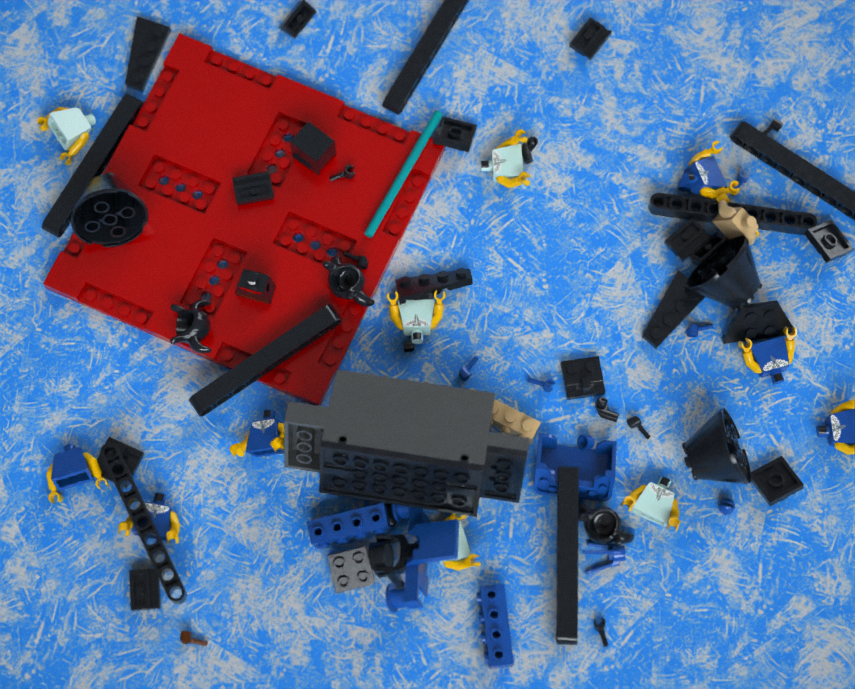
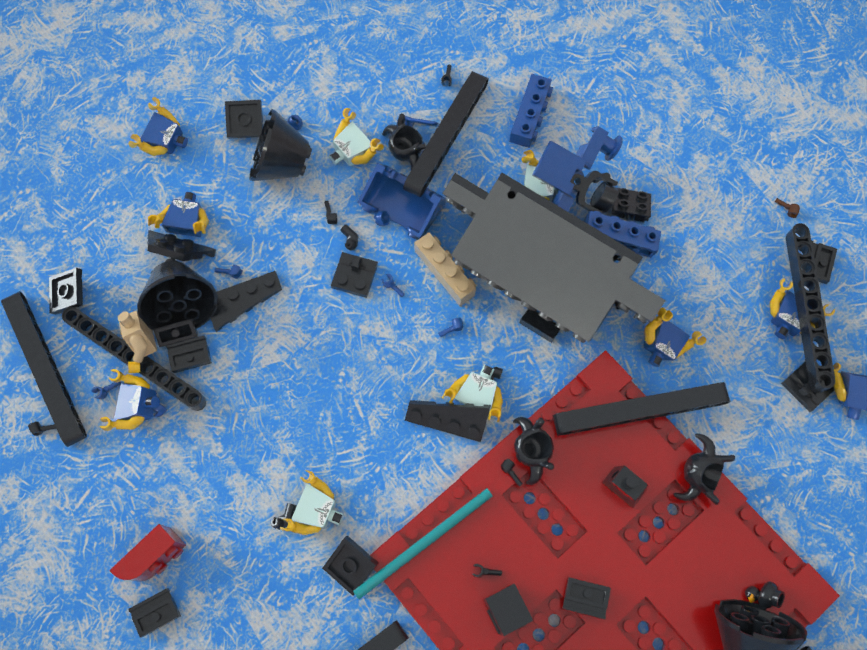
camera: 155 degrees left, 0 degrees up
(104, 252) = (767, 596): none -> black animal
(616, 70) = (149, 555): none -> red brick

